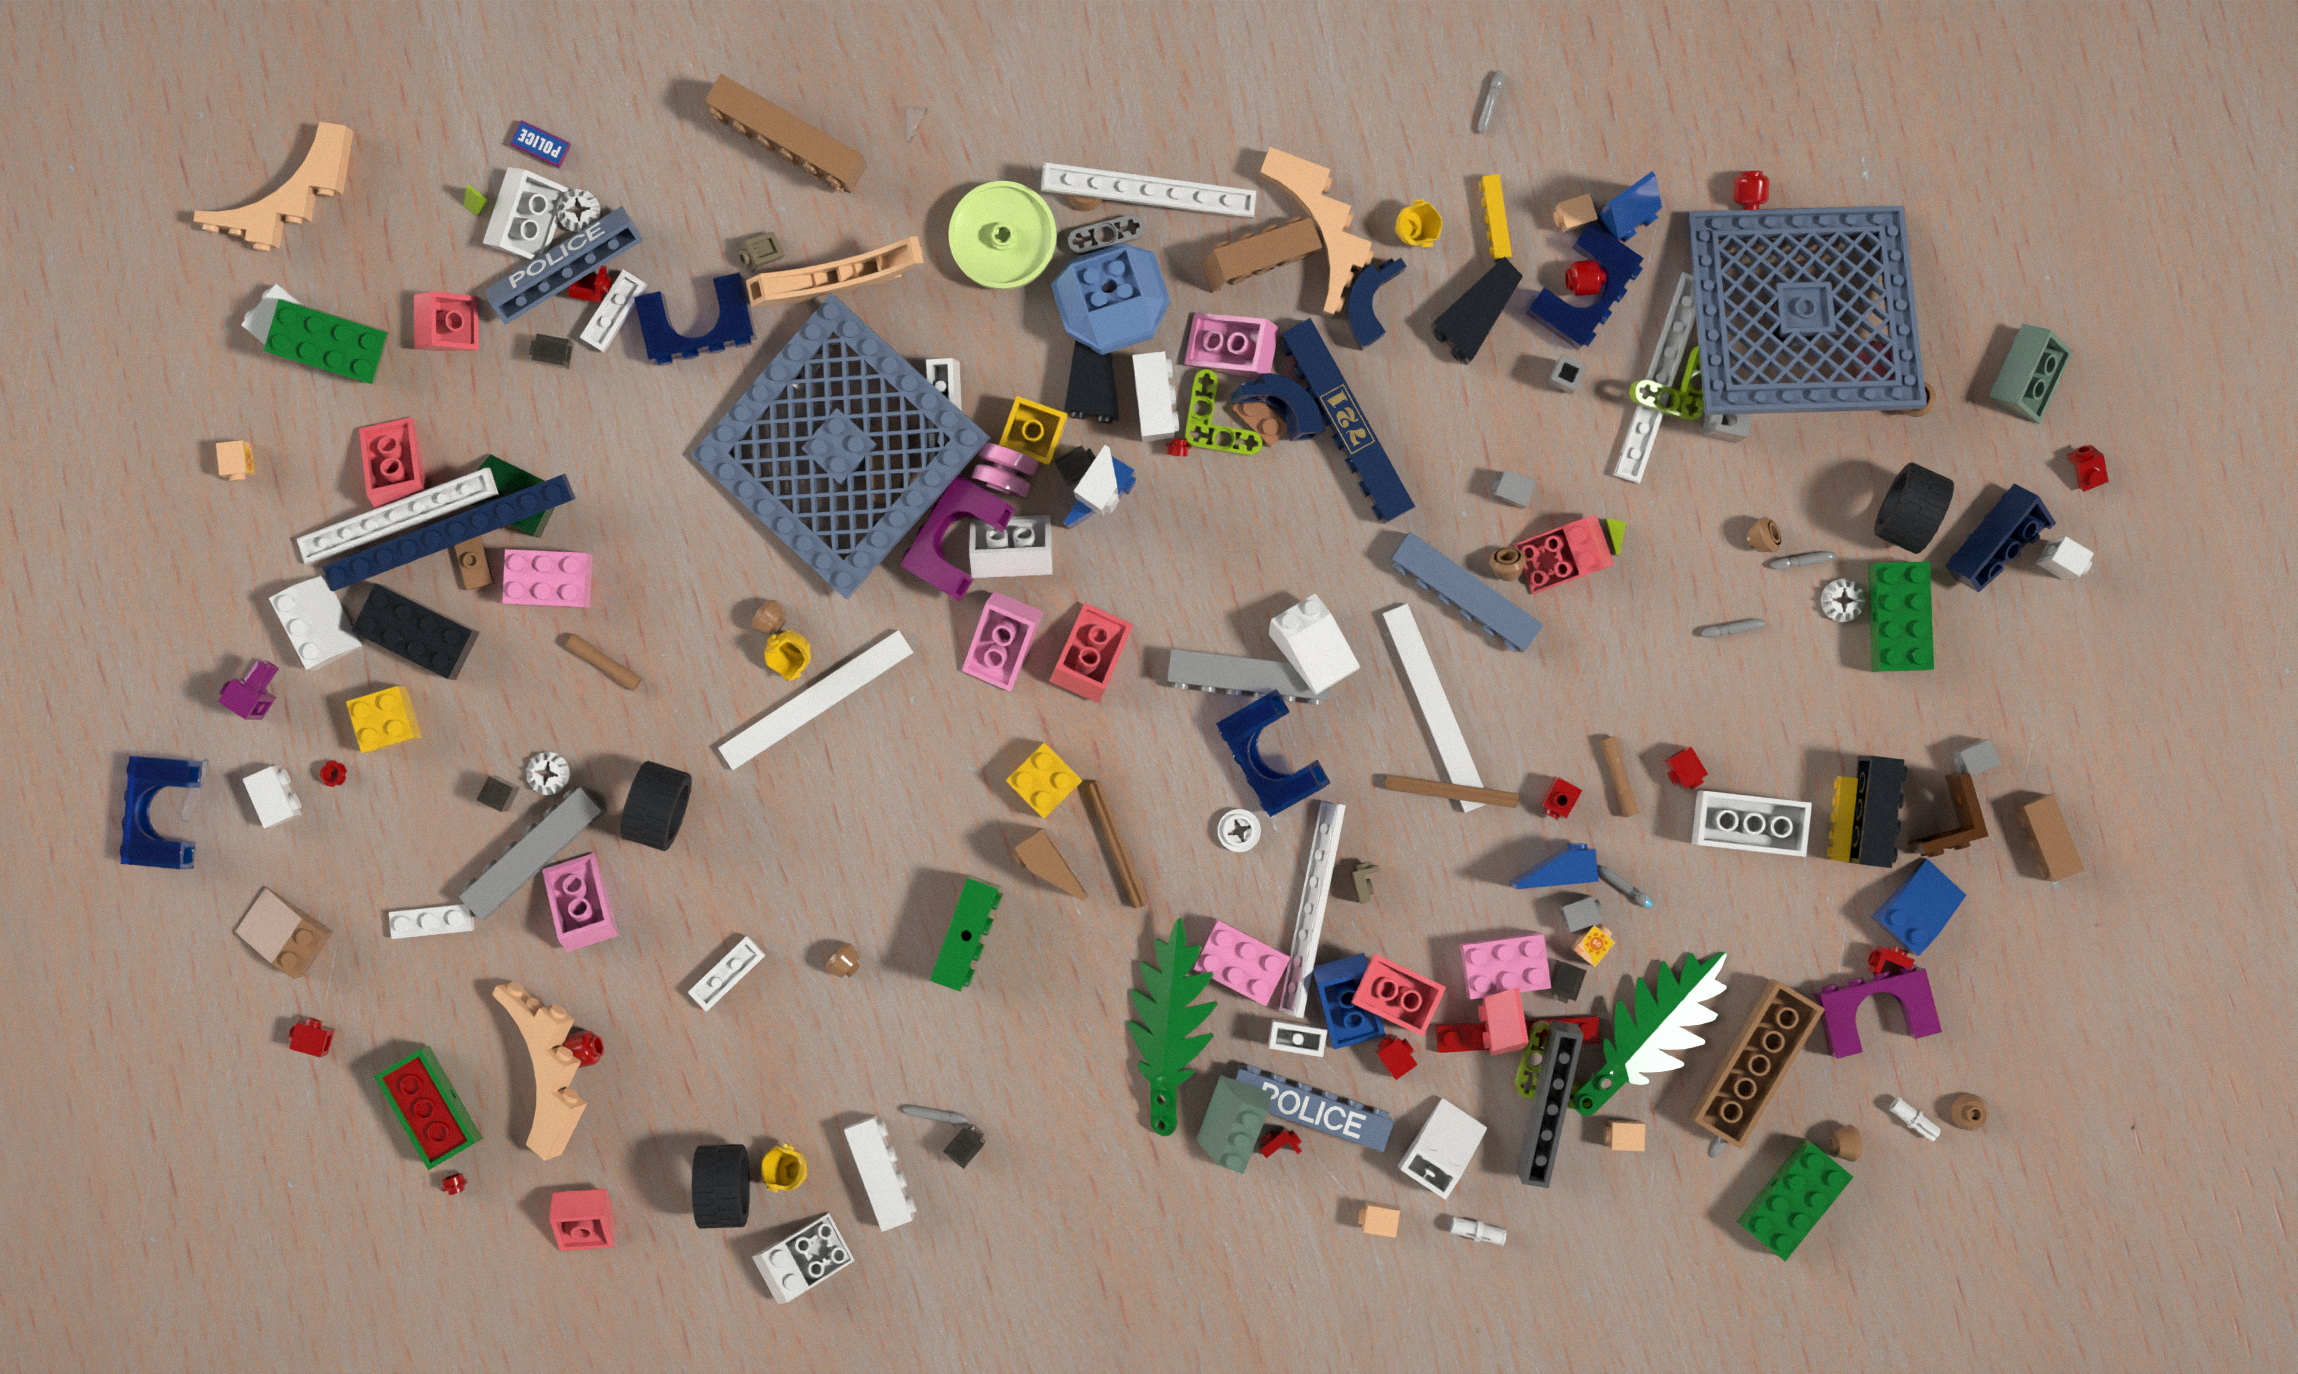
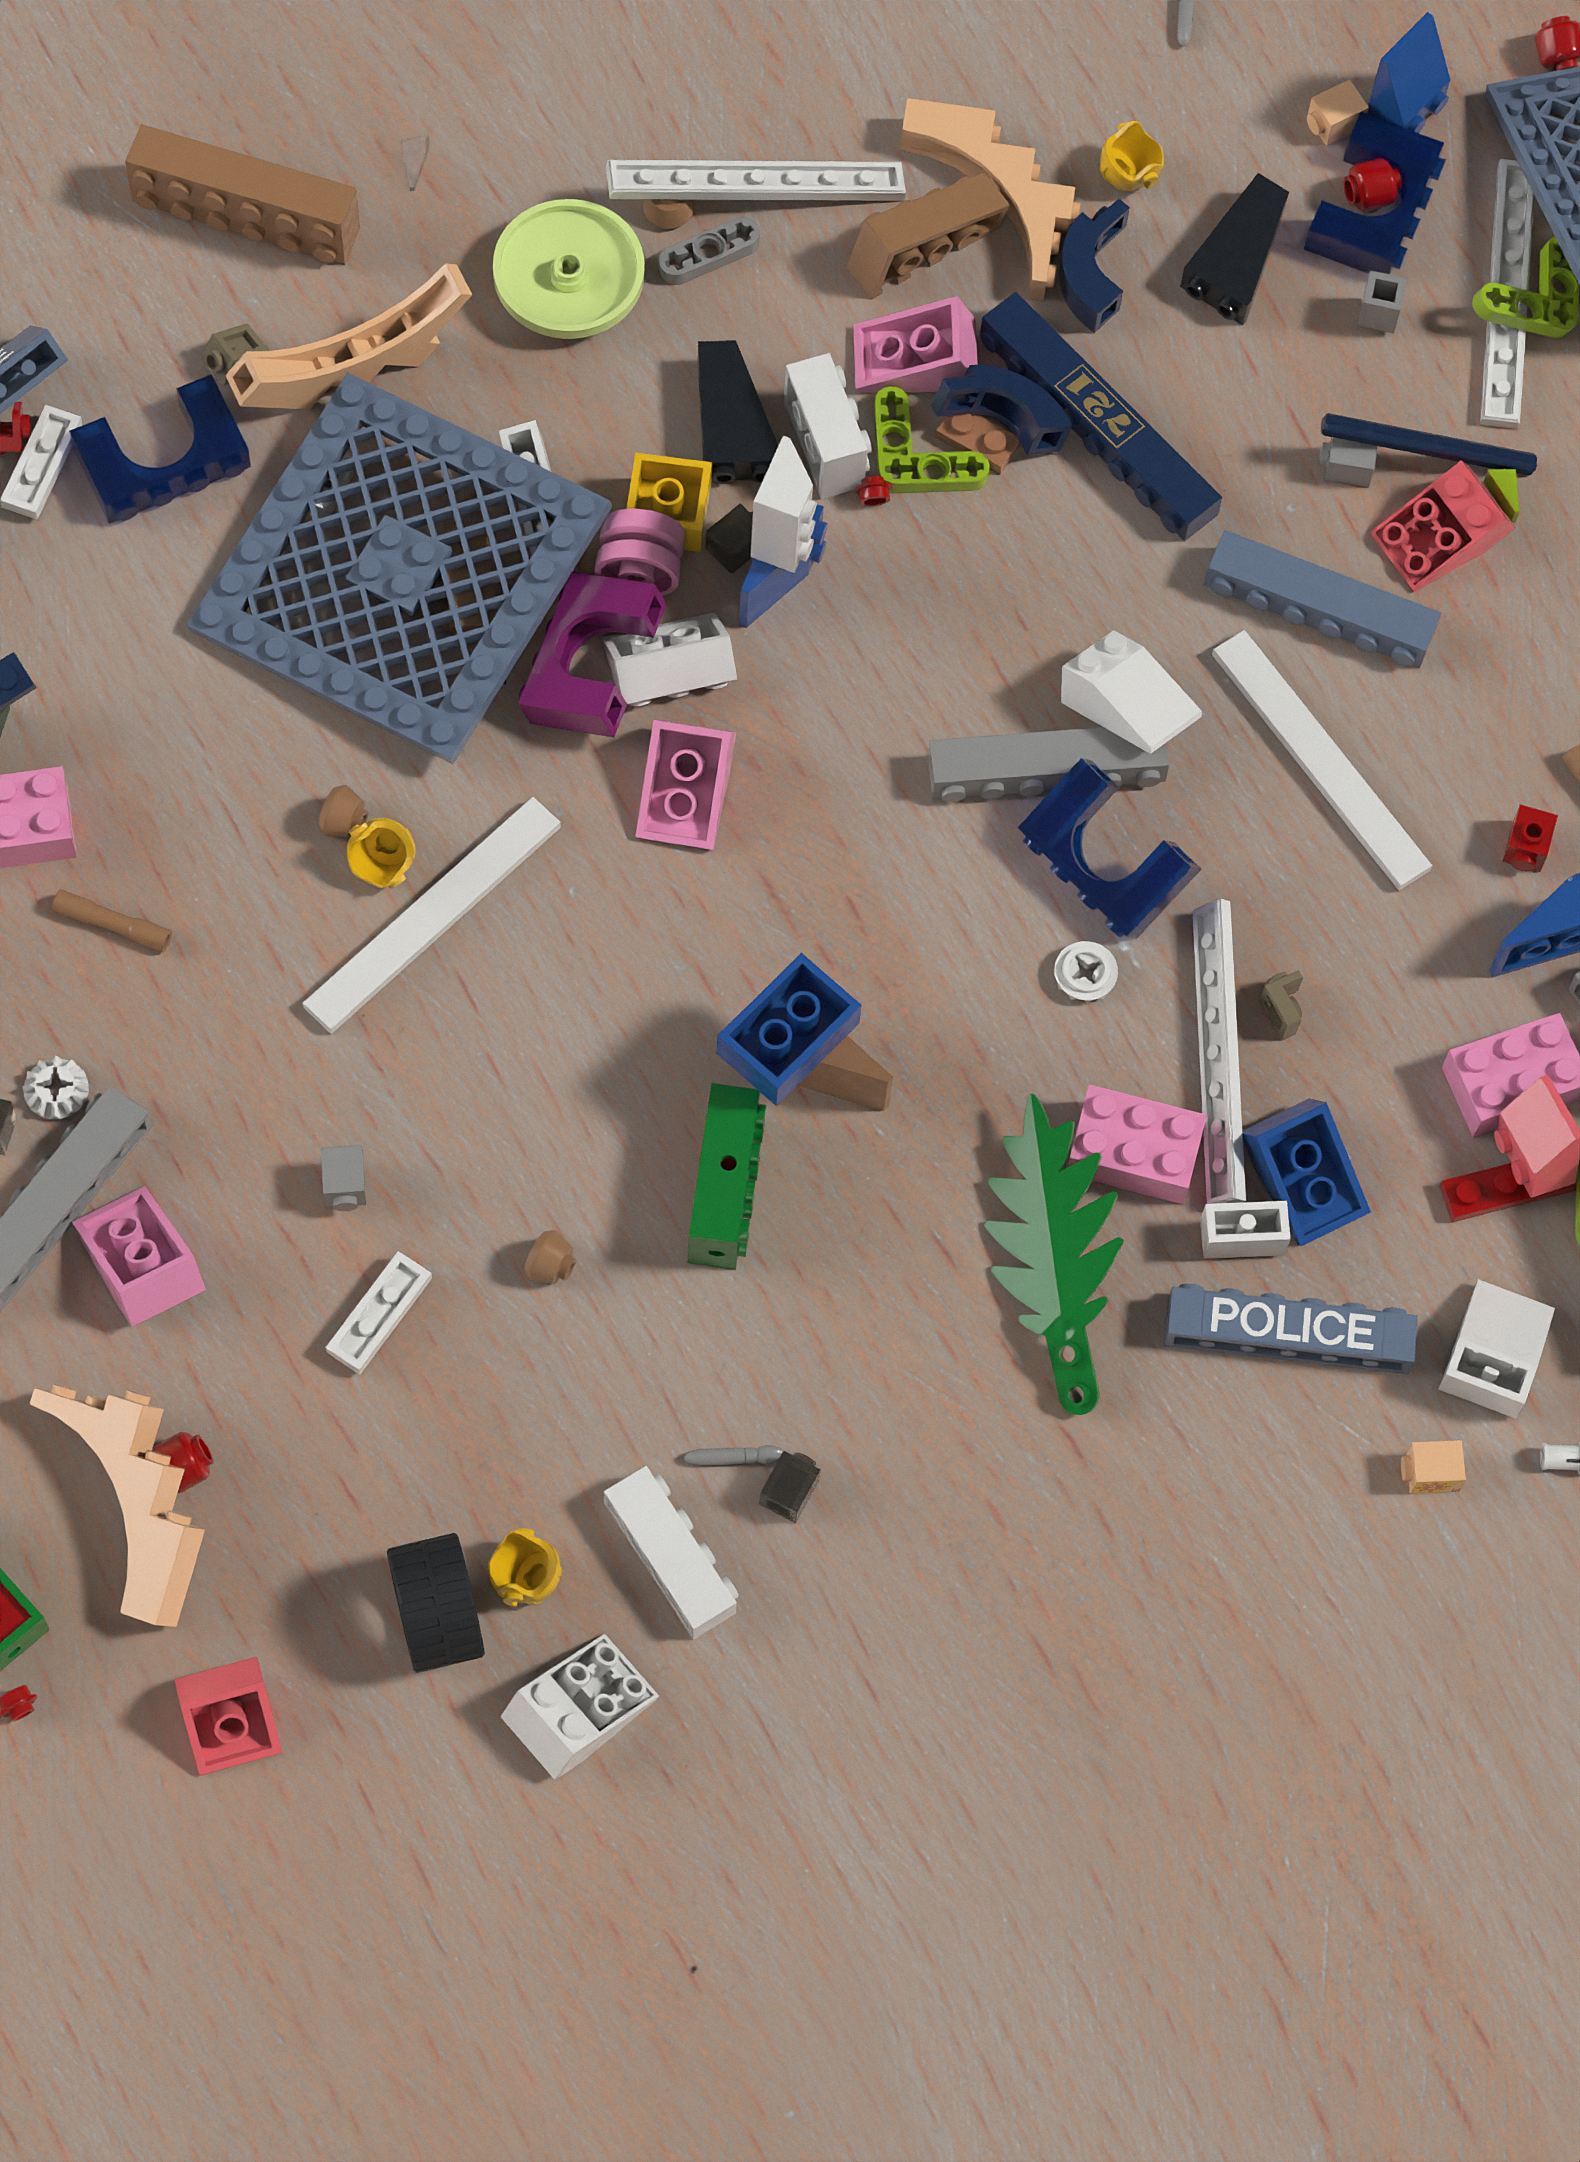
camera: 20 degrees left, 20 degrees down
(655, 805) = (230, 1081): black tyre -> none
(720, 880) = (343, 1177): none -> light grey brick
(1022, 859) = (788, 1029): none -> blue brick
(1044, 780) = (781, 936): yellow brick -> none
(1091, 652) = (815, 776): coral slope -> none
(1115, 318) = (738, 311): medium blue piece -> none
(1116, 844) = (914, 1025): medium nougat axle -> none
(1233, 1123) = (1182, 1362): sand green slope -> none
(1273, 1141) = (1248, 1387): red bracket -> none
(1396, 1056) = (1395, 1232): red brick -> none
(1398, 994) = (1377, 1135): coral slope -> none
(1451, 791) = (1374, 856): medium nougat axle -> none
(1495, 217) = (1230, 135): yellow piece -> none
(1507, 563) = (1369, 551): medium nougat cone -> none
(1569, 494) = (1427, 444): none -> dark blue axle

